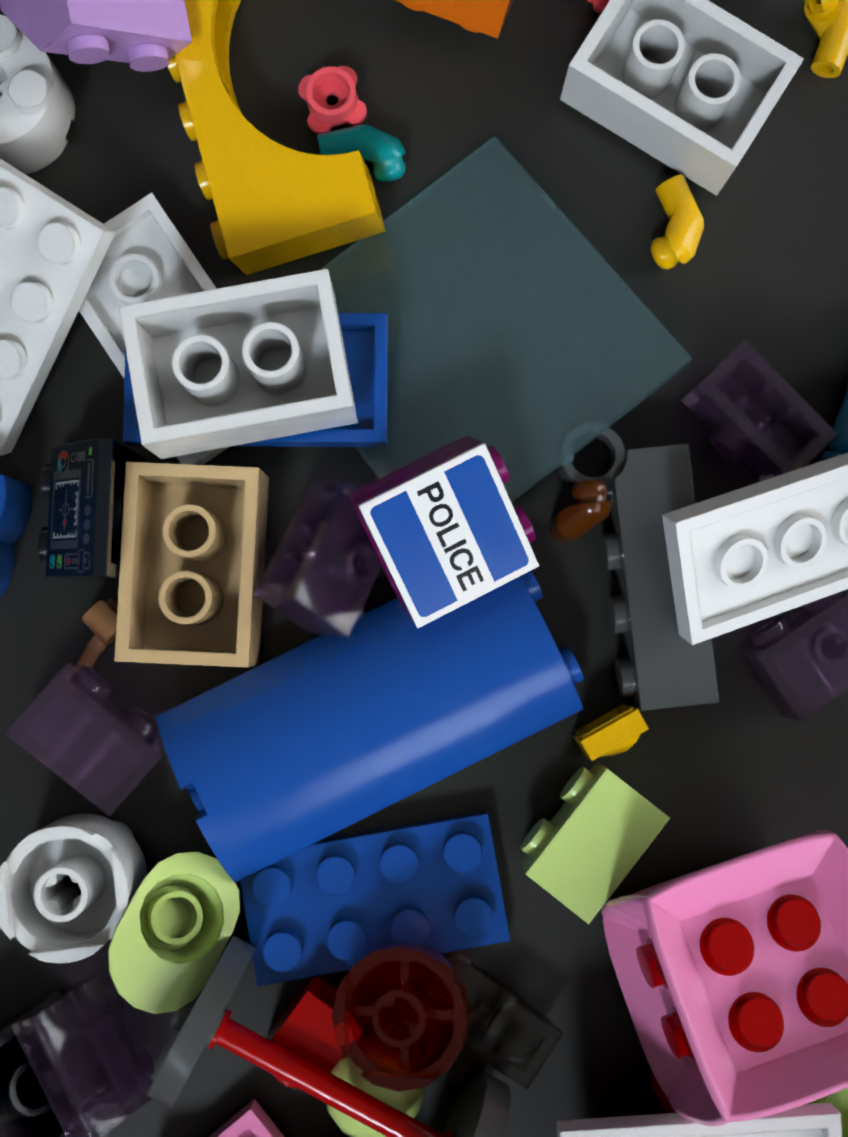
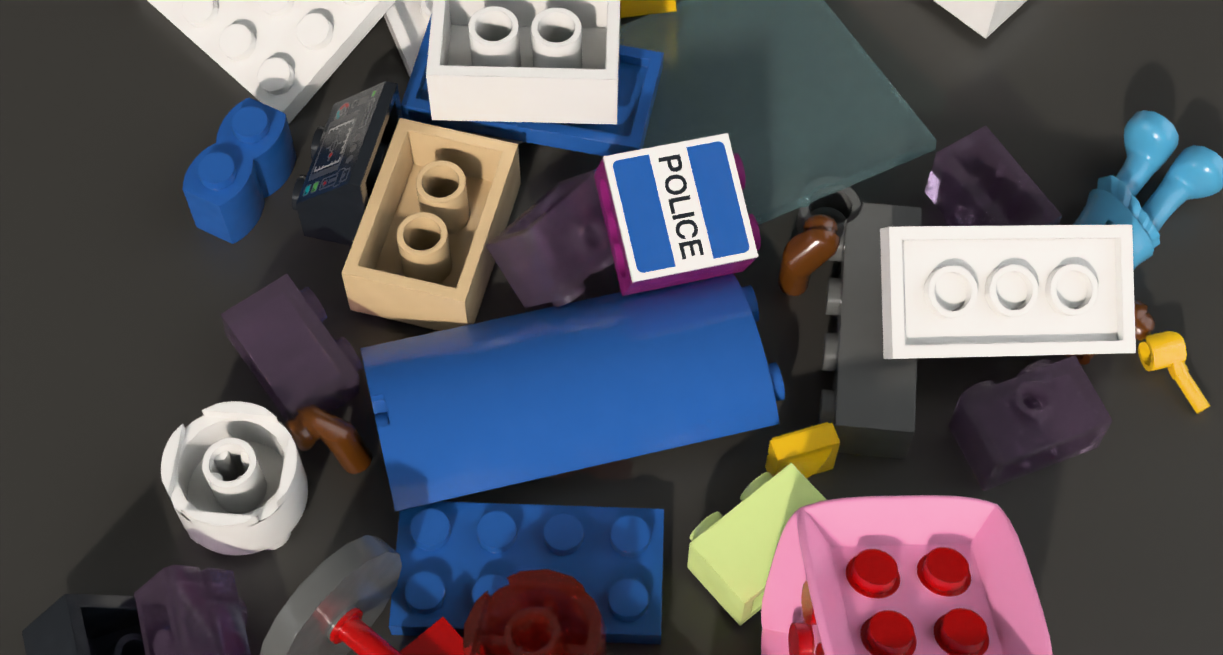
camera: 15 degrees right, 25 degrees down
(102, 622) = (329, 268): medium nougat hand -> none
(148, 818) = (339, 435): none -> reddish brown arm
(173, 932) = (324, 514): yellowish green piece -> none
(684, 224) = (950, 54): yellow arm -> none

